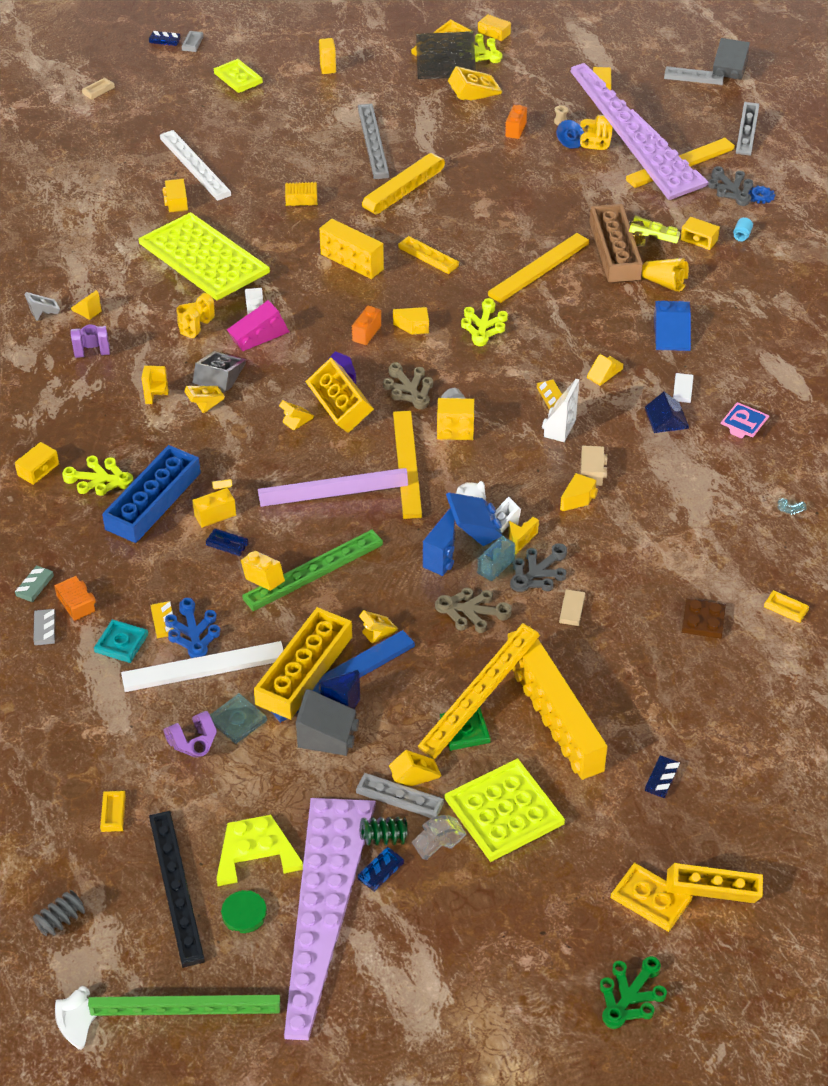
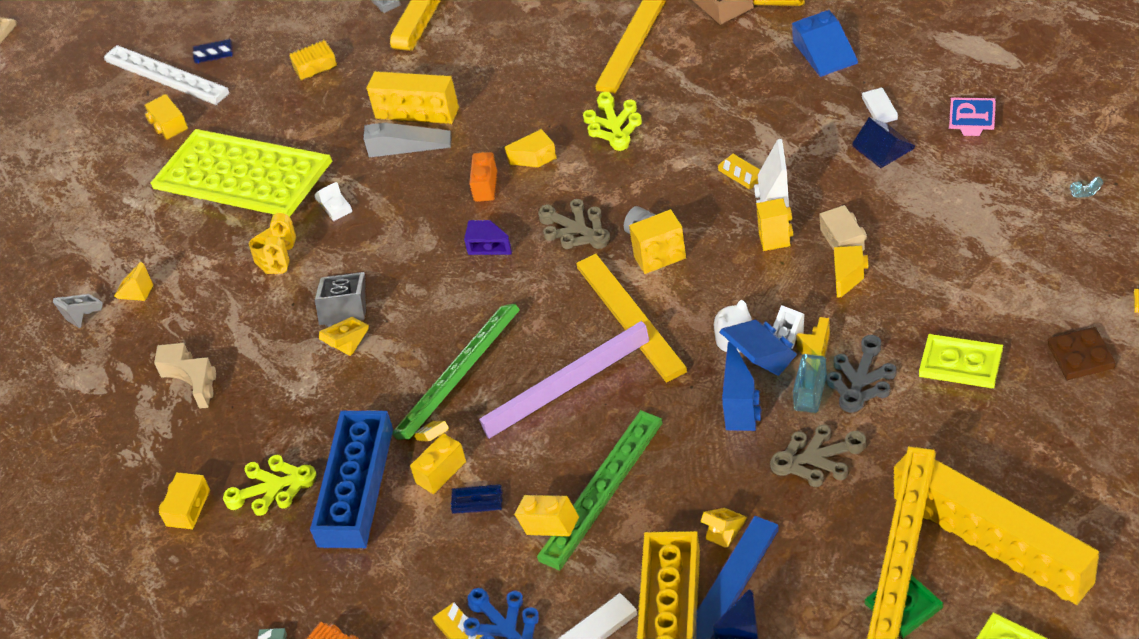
camera: 15 degrees left, 0 degrees up
(85, 369) = (177, 362): none -> tan arch
(90, 337) = (164, 319): medium lavender piece -> none
(154, 382) = (275, 342): yellow panel -> none
(237, 160) = (212, 51): none -> clear blue tile
(258, 327) = (358, 228): dark pink wedge -> none
(264, 451) = (455, 372): none -> bright green tile
(295, 415) = (464, 314): yellow slope -> none
(324, 274) = (393, 139): none -> light grey slope
(339, 395) = (506, 269): yellow brick -> none
(428, 254) = (500, 71): yellow tile -> none
(544, 440) = (774, 224): none -> yellow brick
(572, 607) = (928, 404): tan tile -> none
(604, 369) = (781, 120): yellow slope -> none
(614, 588) = (961, 361): none -> neon yellow plate

